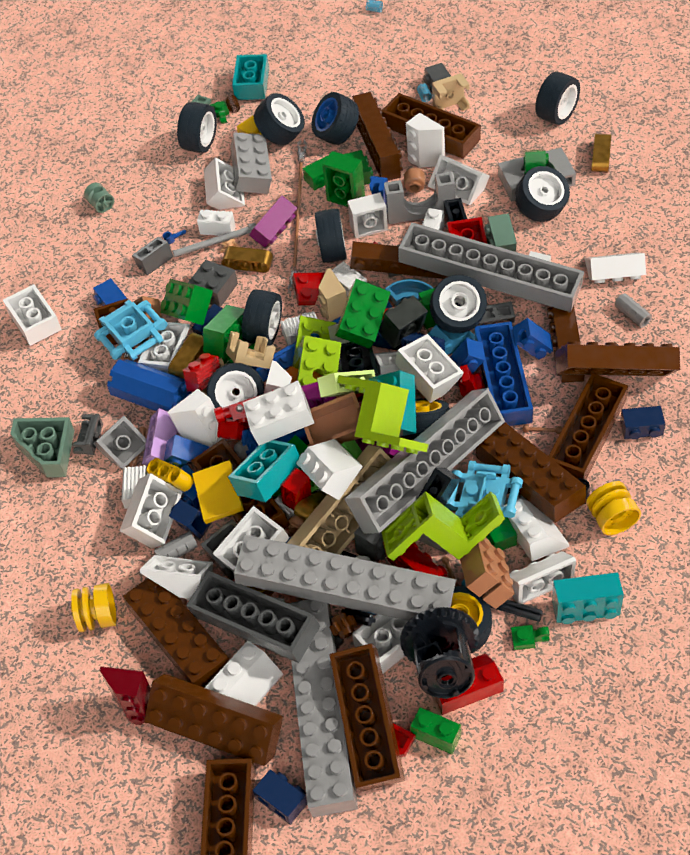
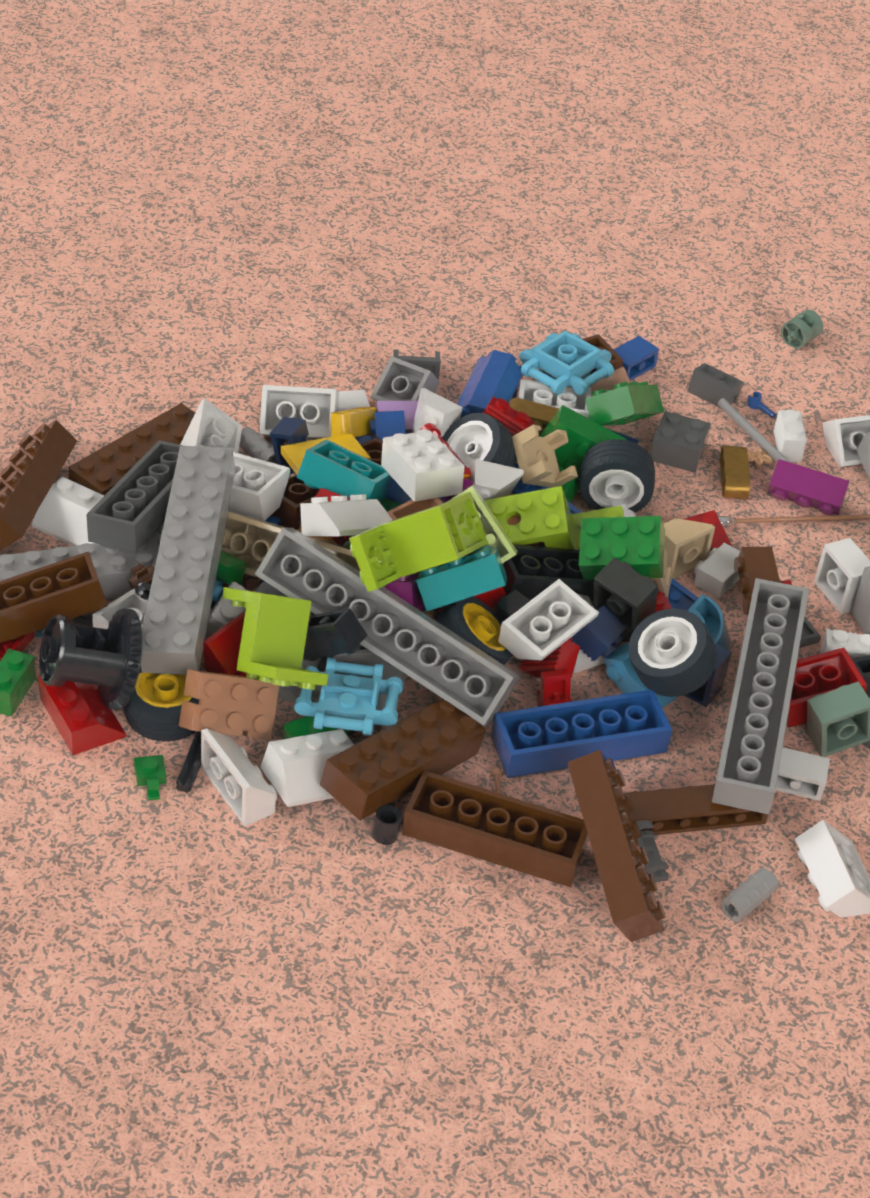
camera: 70 degrees right, 10 degrees down
(32, 314) = (585, 295): white brick -> none
(45, 443) = (389, 327): sand green brick -> none
(89, 608) = (166, 383): yellow wheel -> none
(129, 691) = (47, 401): dark red slope -> none
(330, 235) = (790, 527): black wheel -> none
(469, 354) = (593, 683): blue brick -> none
(498, 313) = (695, 725): dark grey hinge -> none
(535, 339) = (648, 760): blue brick -> none
(587, 598) = (200, 821): teal brick -> none
(613, 508) = (352, 850): yellow wheel -> none
(642, 422) = (523, 899): dark blue brick -> none

